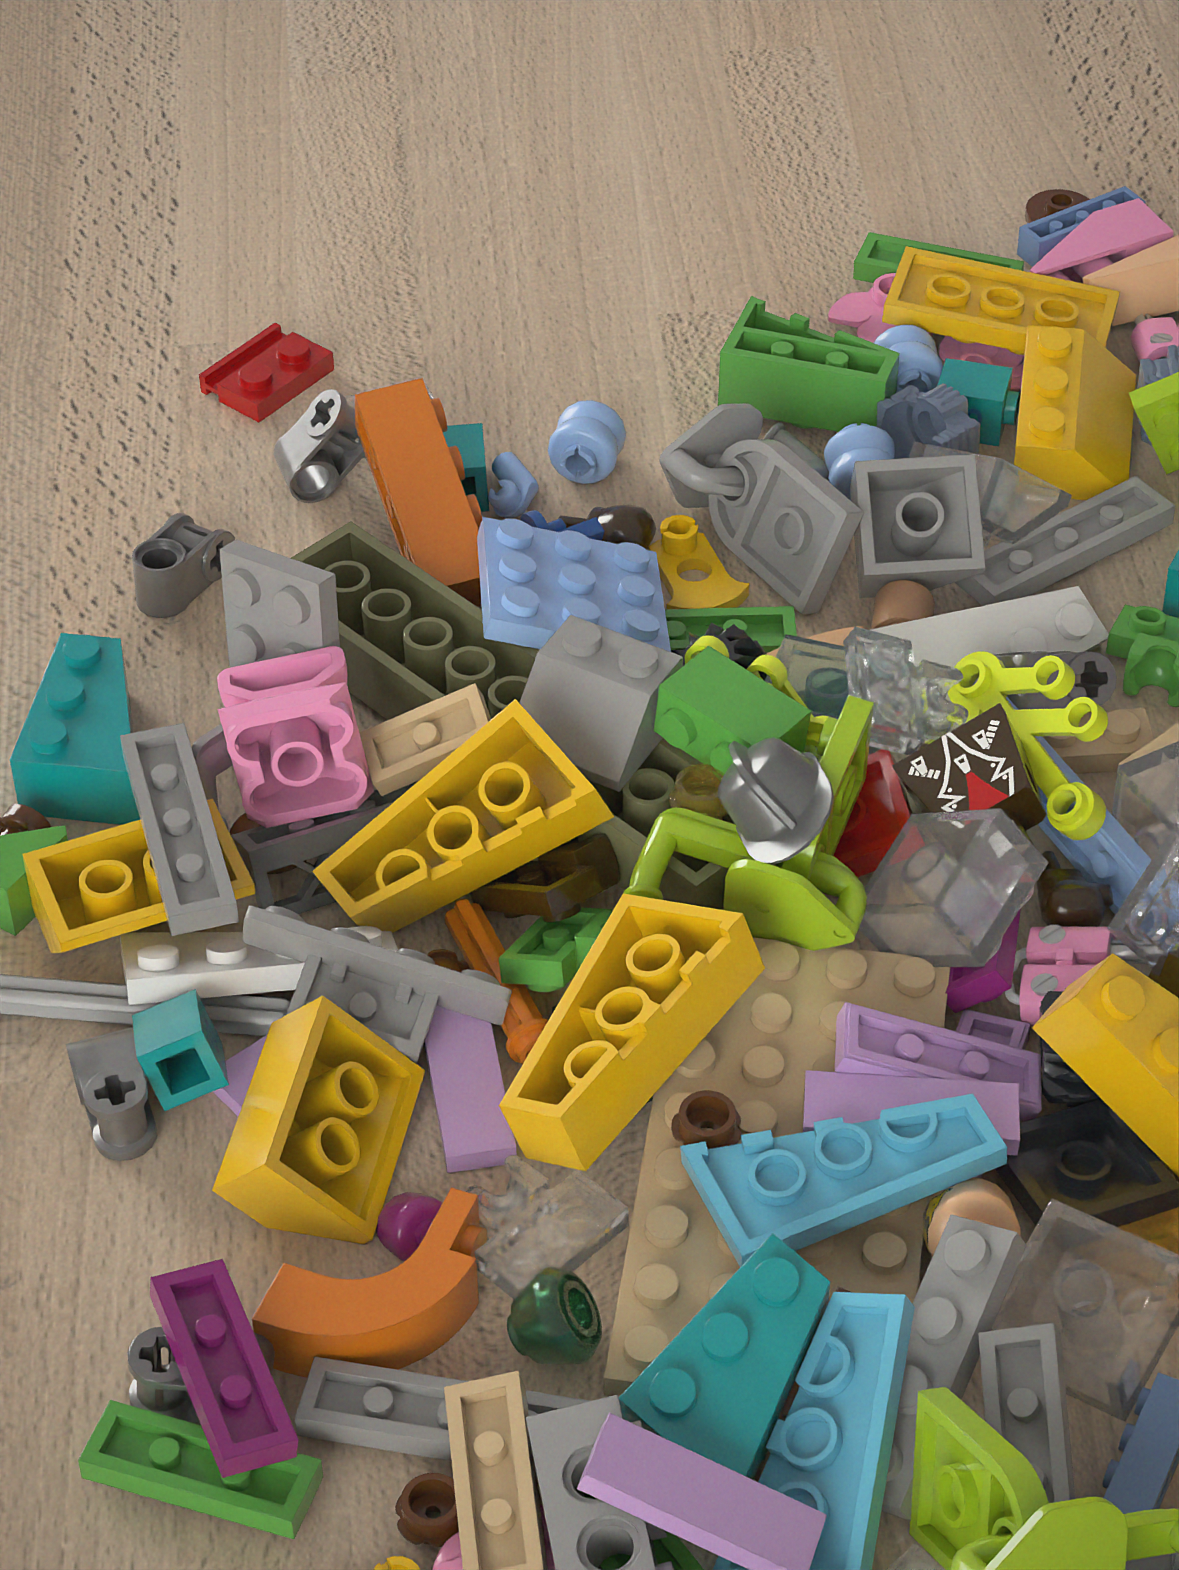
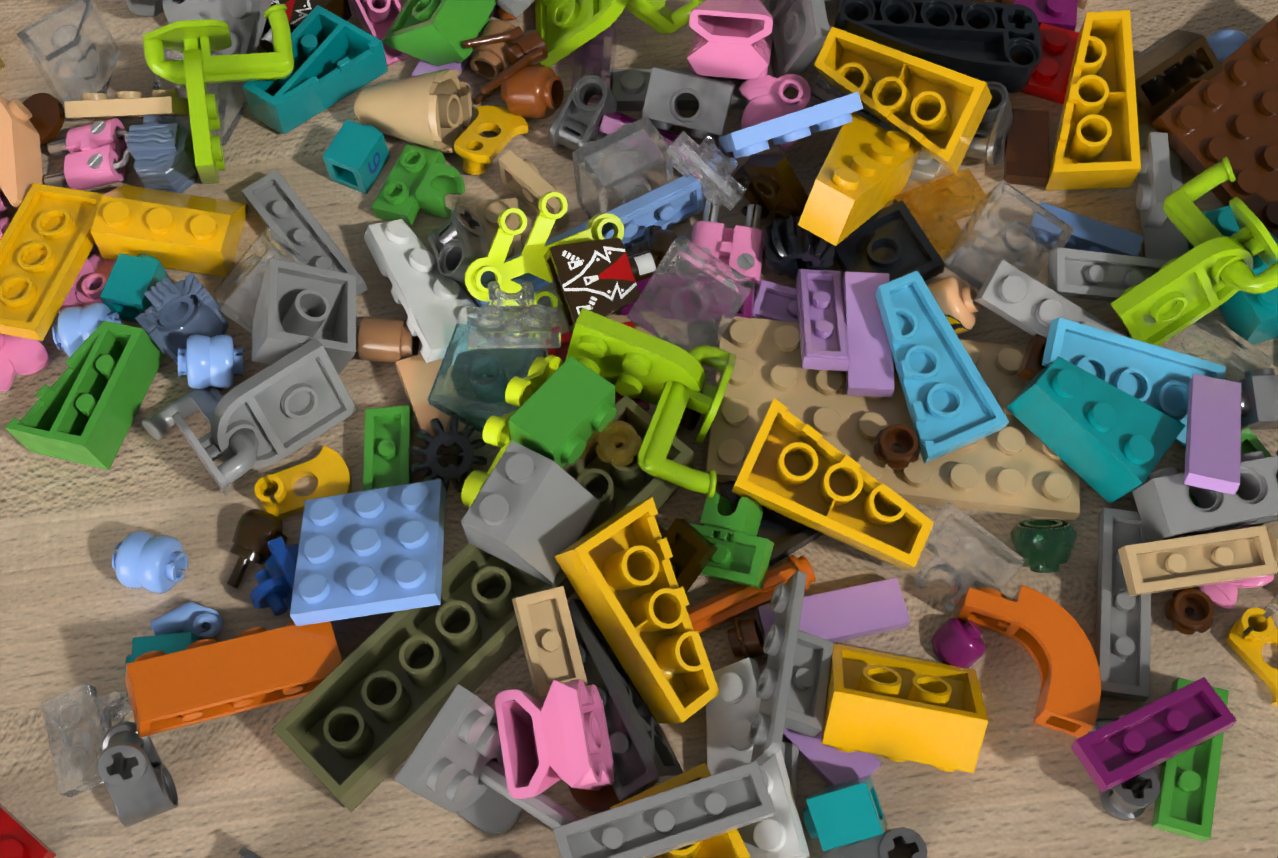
camera: 90 degrees left, 20 degrees up
(775, 798) = (663, 375): dark grey piece -> none

